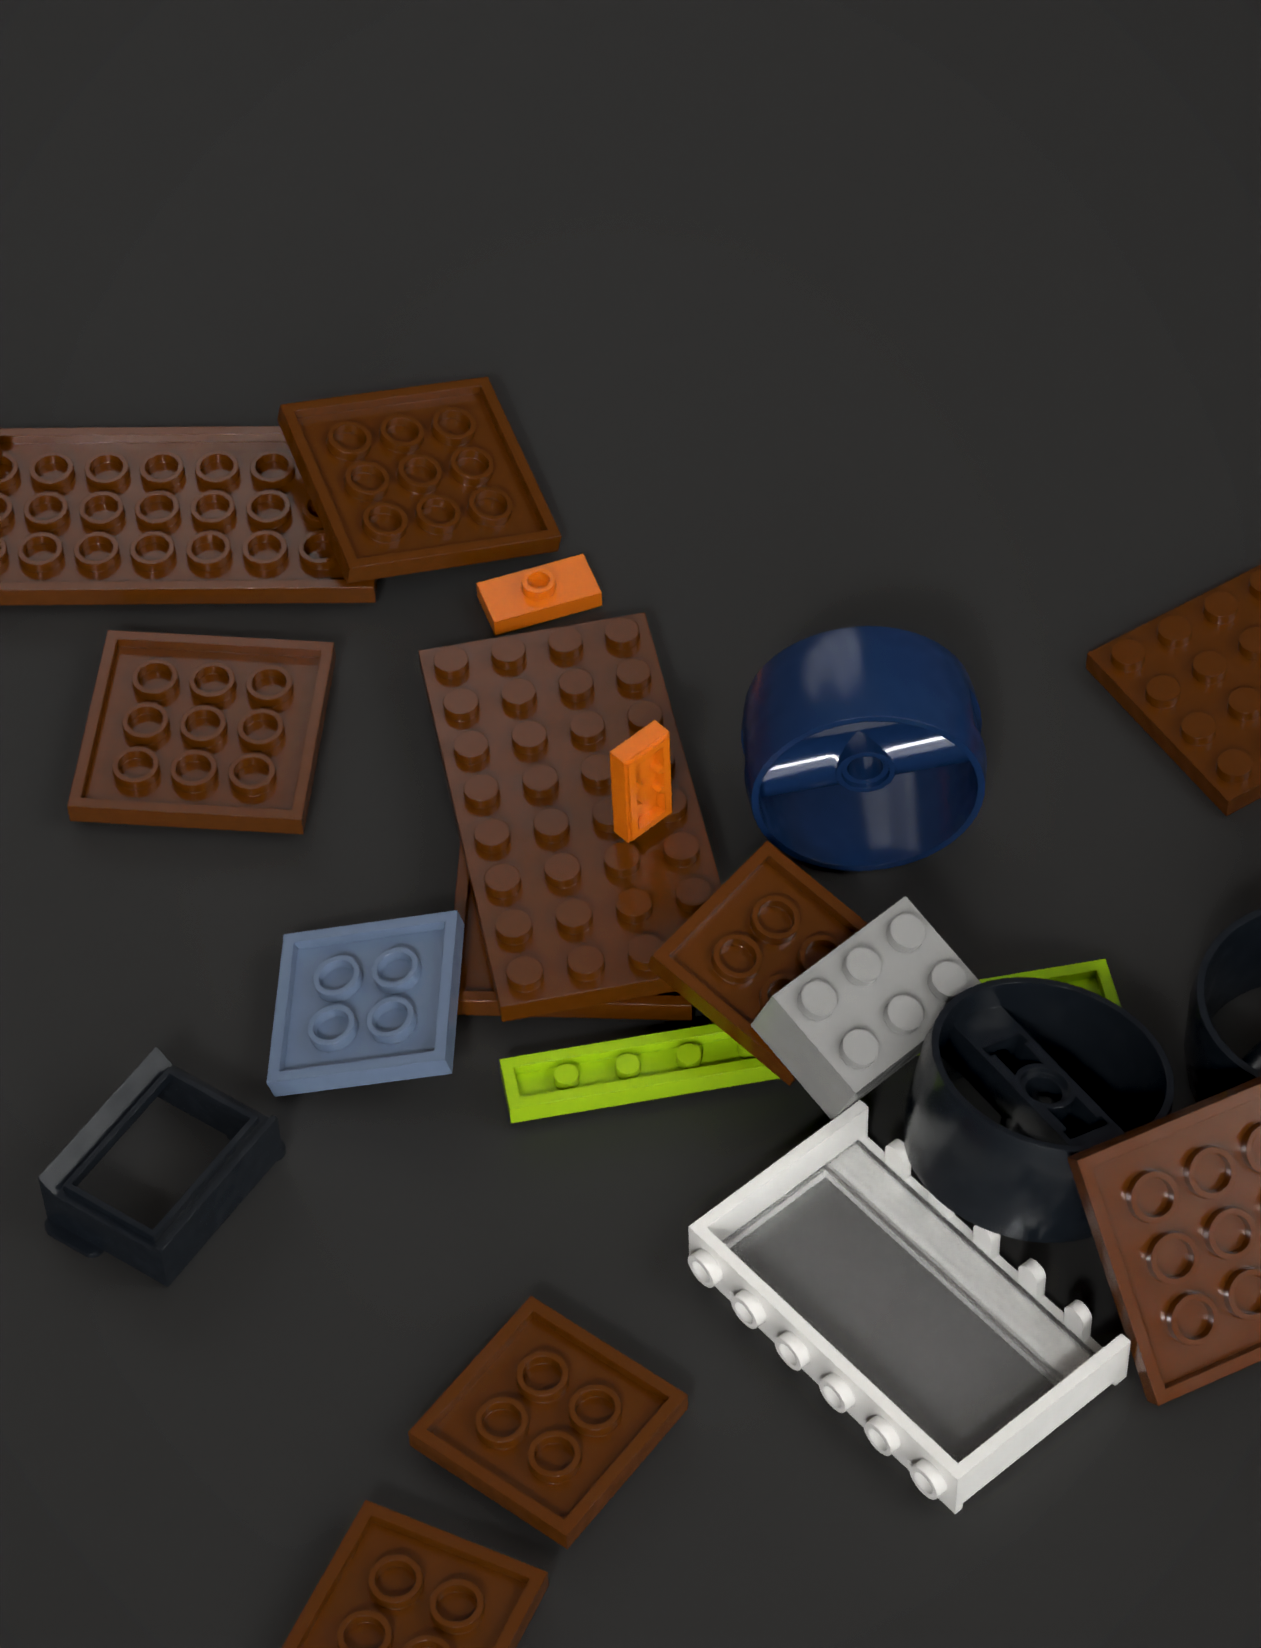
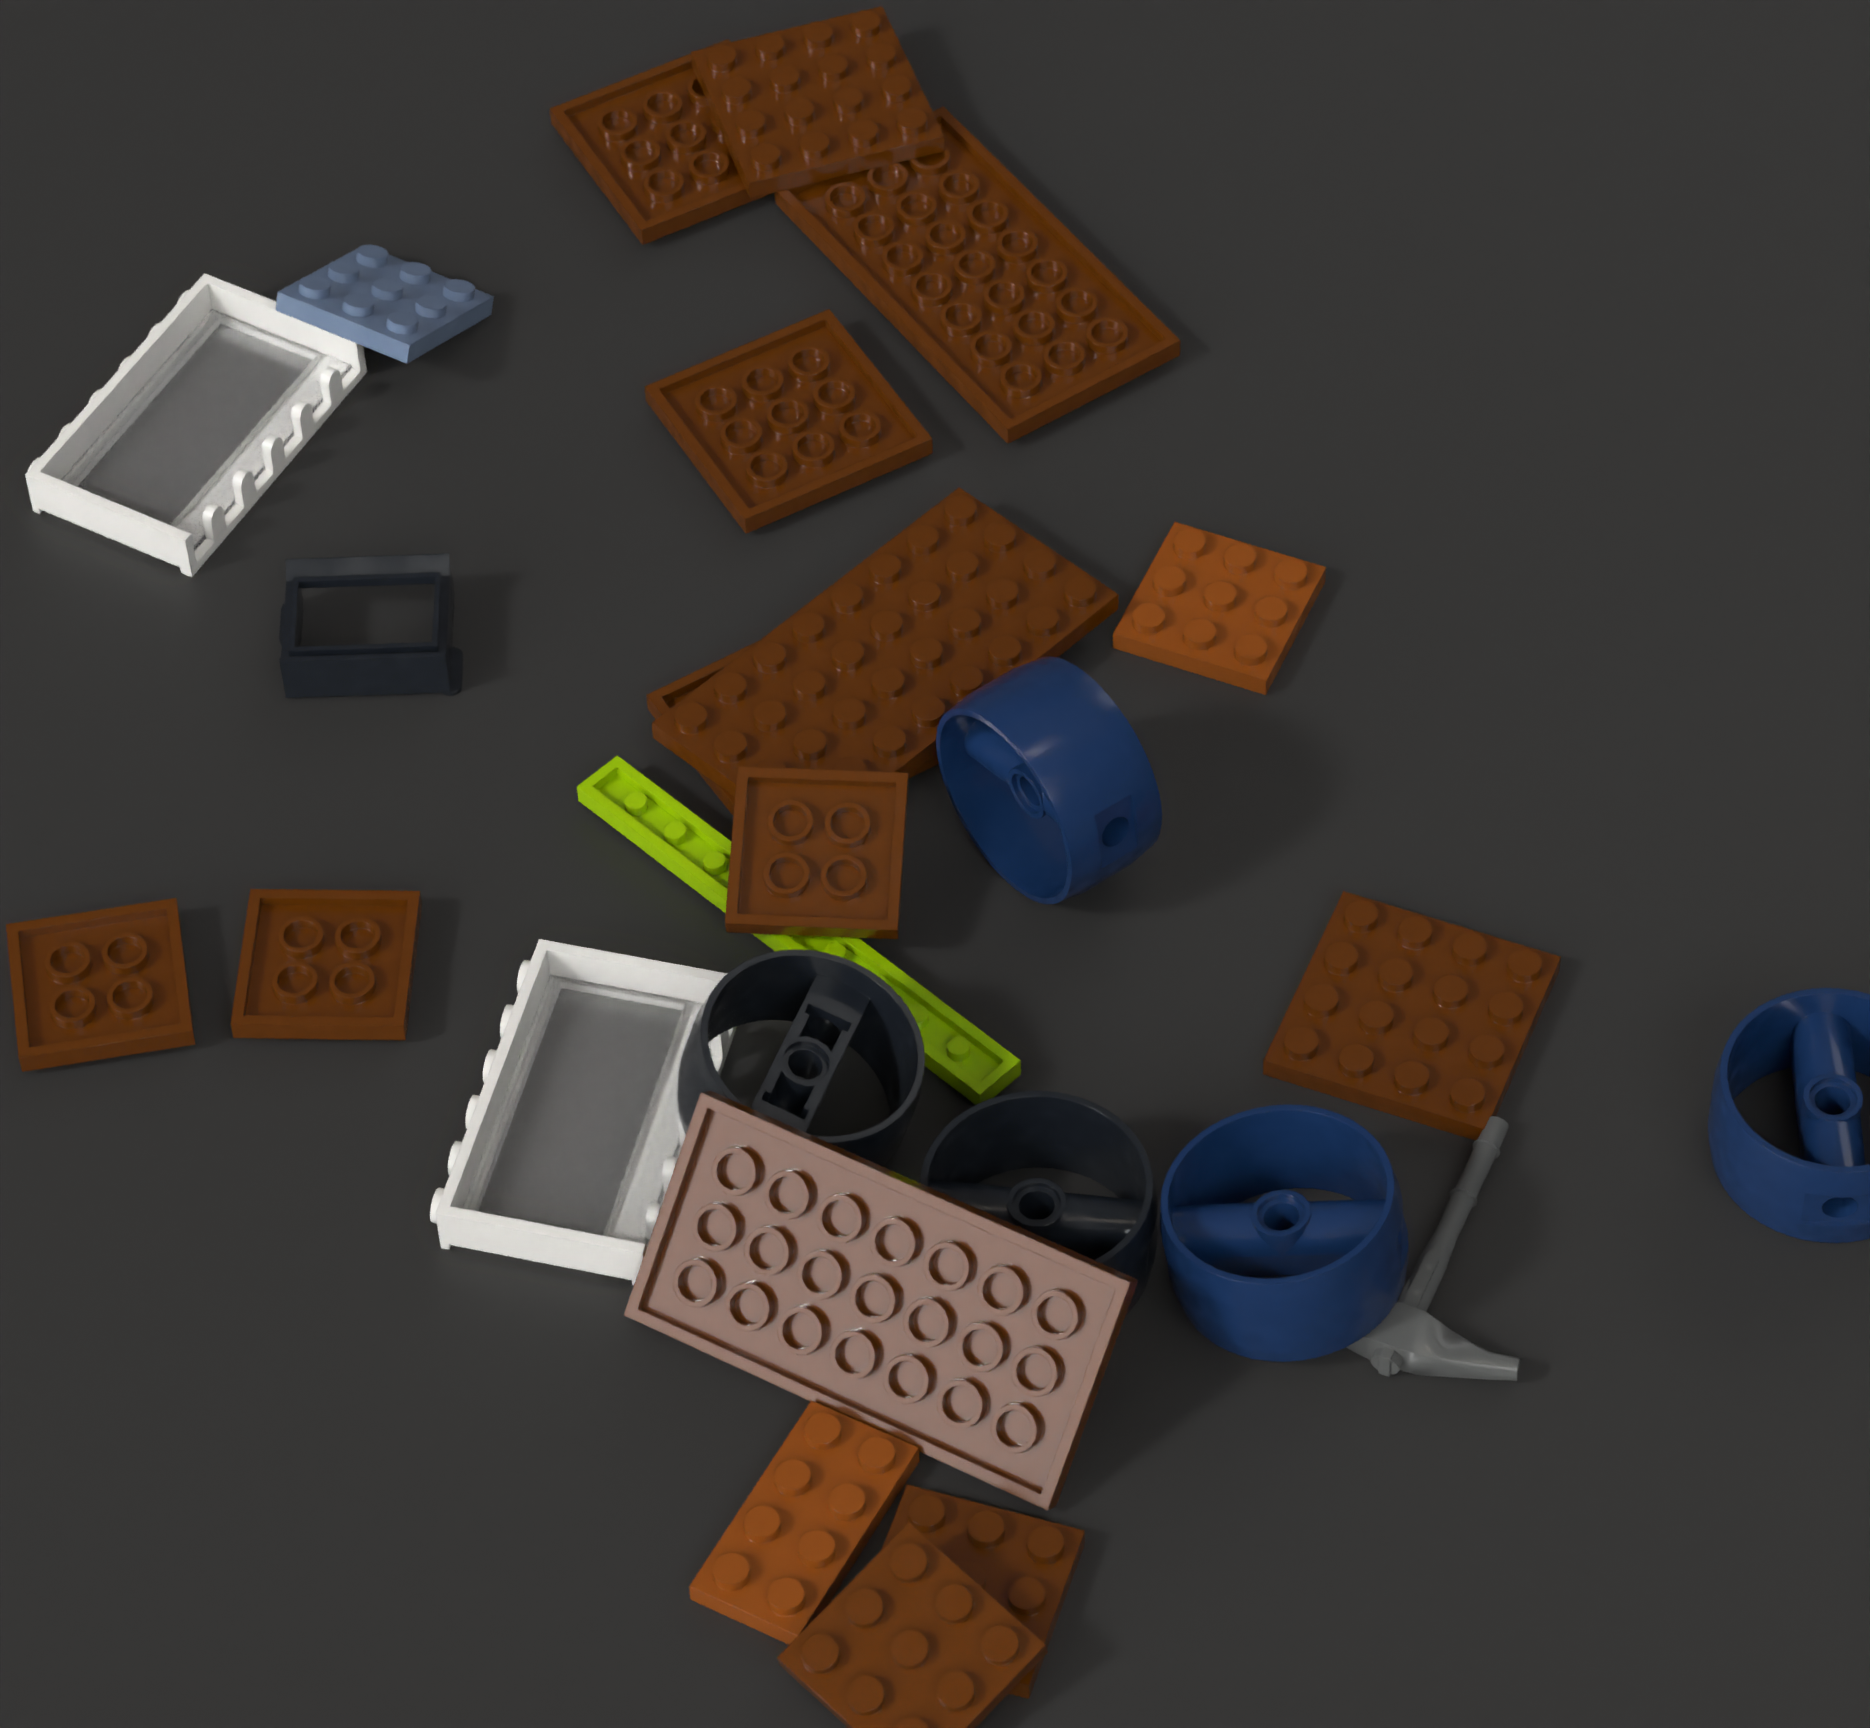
camera: 55 degrees right, 0 degrees up
(366, 1004) = (602, 652): sand blue plate -> none
(418, 479) = (1133, 388): reddish brown plate -> none
(539, 594) = (1103, 531): orange plate -> none
(641, 781) = (892, 665): orange plate -> none
(696, 567) = (1219, 608): none -> dark orange plate
(863, 1007) = (804, 904): light grey brick -> none

